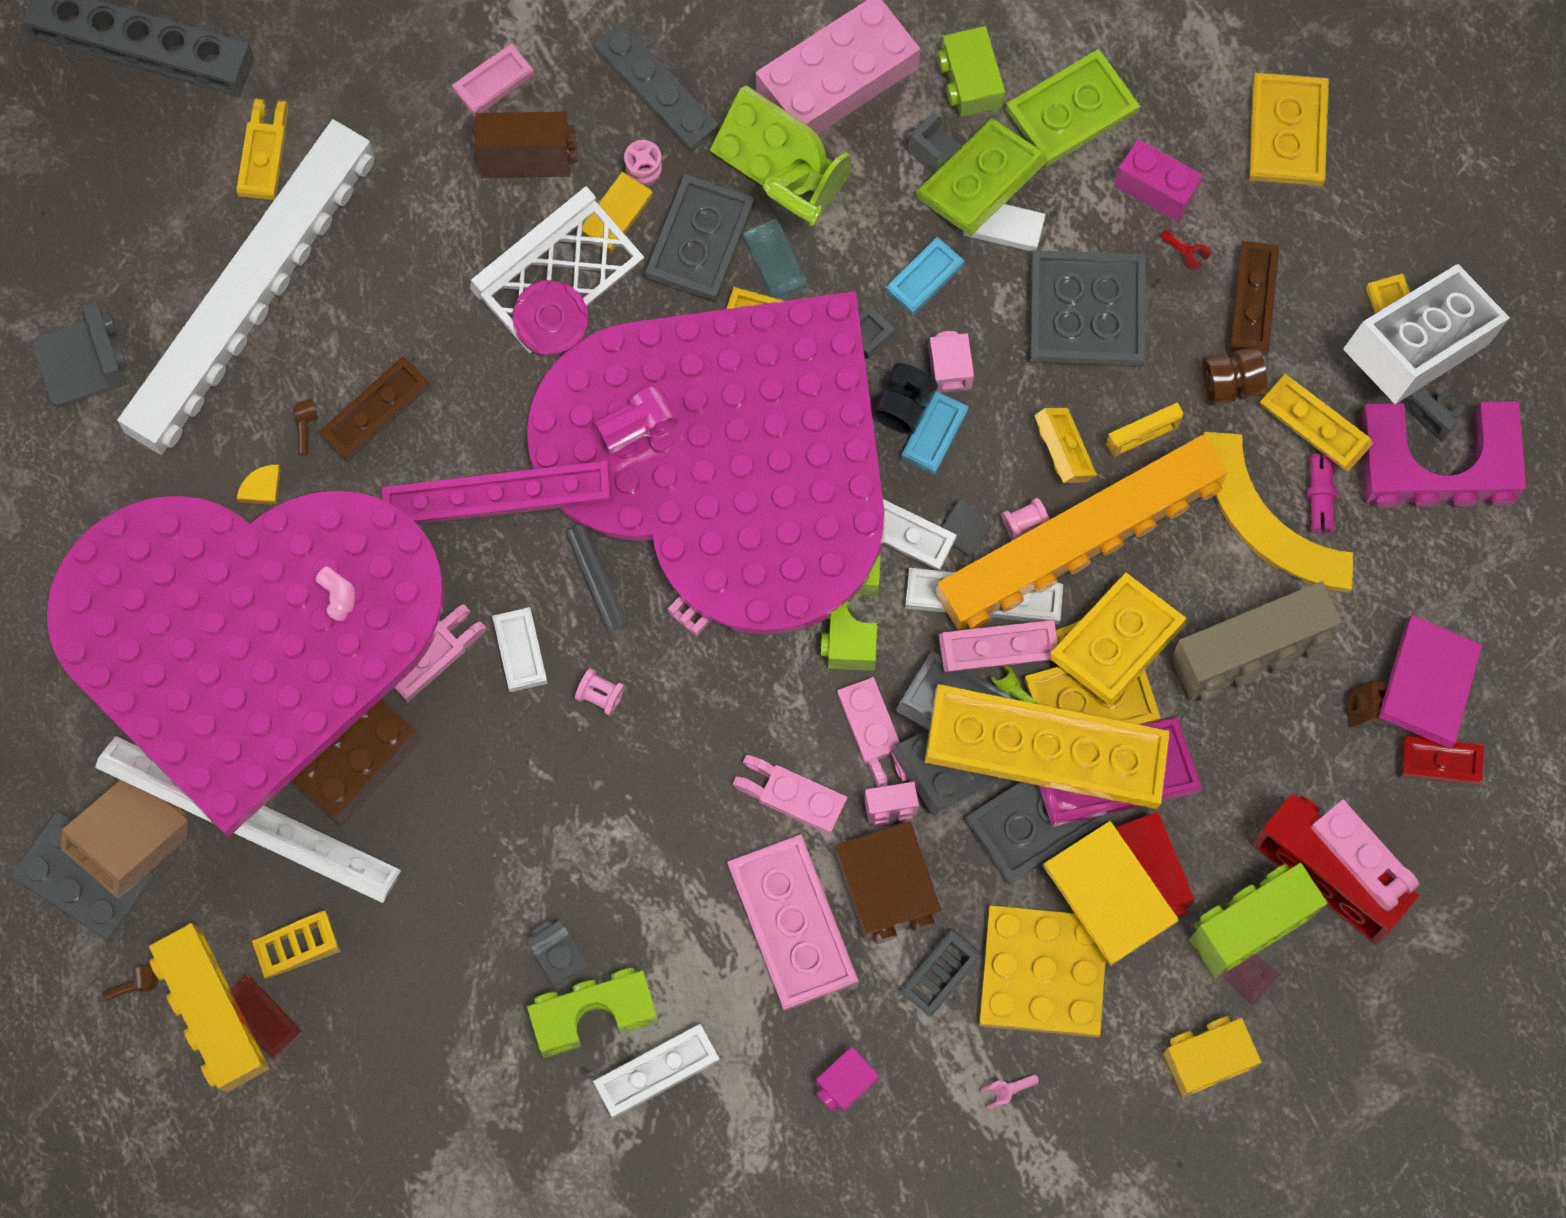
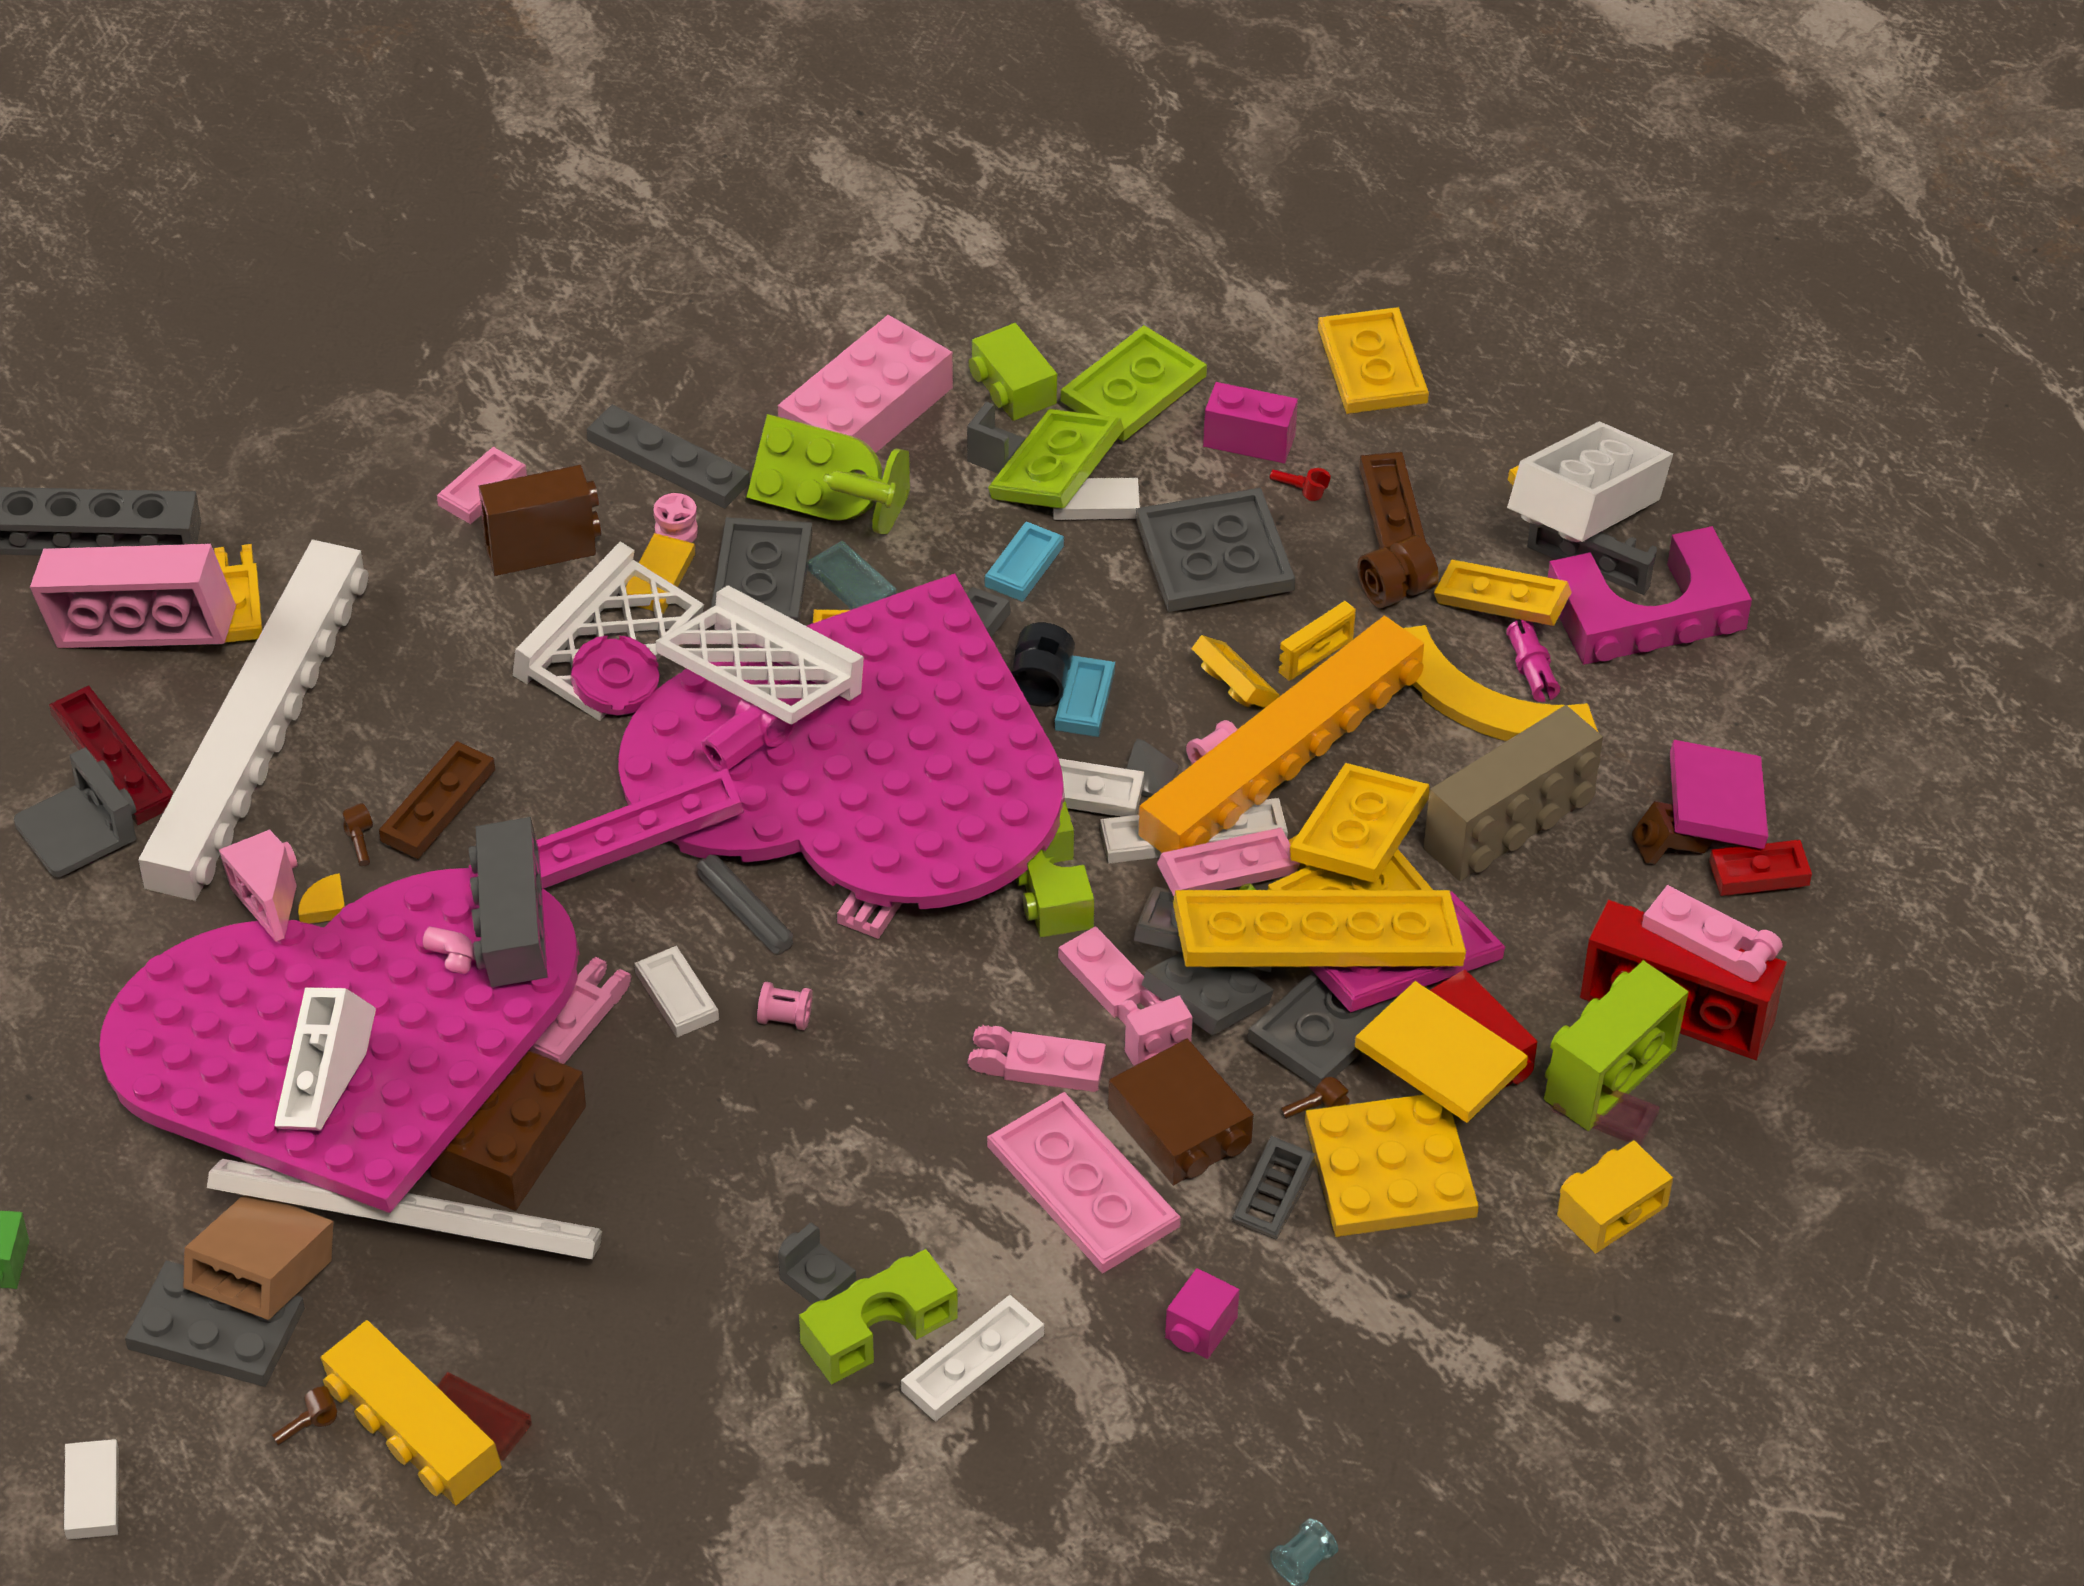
camera: 15 degrees left, 25 degrees down
(127, 291) = (94, 727): none -> dark red tile
(170, 148) = (133, 596): none -> bright pink brick
(207, 682) = (324, 1055): none -> white slope
(214, 466) = (263, 879): none -> bright pink slope
(319, 920) = (504, 1308): yellow slope -> none
(392, 562) = (509, 902): none -> dark grey brick
(693, 344) = (770, 639): none -> white fence
(951, 361) = (1085, 621): bright pink brick -> none
(1005, 1091) = (1386, 1286): bright pink hand -> none
(1014, 891) = (1328, 1091): none -> reddish brown hand

